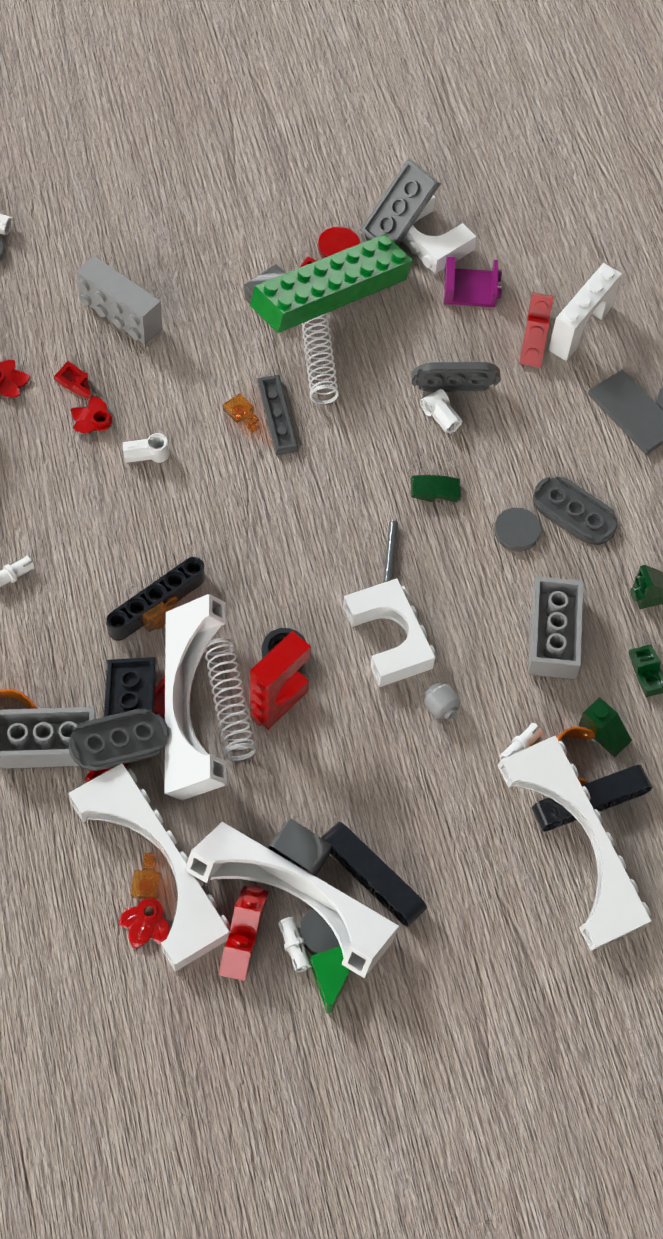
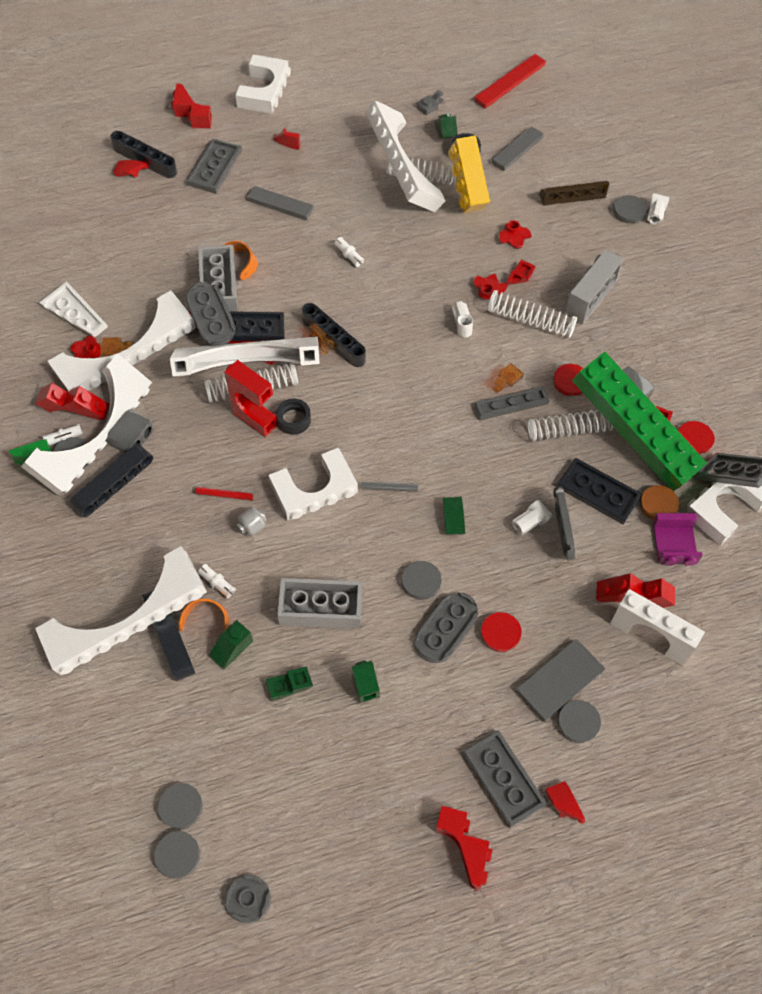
camera: 90 degrees right, 0 degrees up
(66, 945) = (71, 307): none -> white wing
(170, 341) = (572, 322): none -> white piece
(248, 349) = (563, 379): none -> red tile
(394, 738) = (225, 493): none -> red bar
(403, 345) = (599, 490): none -> black tile
(422, 291) = (659, 500): none -> dark orange tile
(580, 458) = (501, 632): none -> red tile

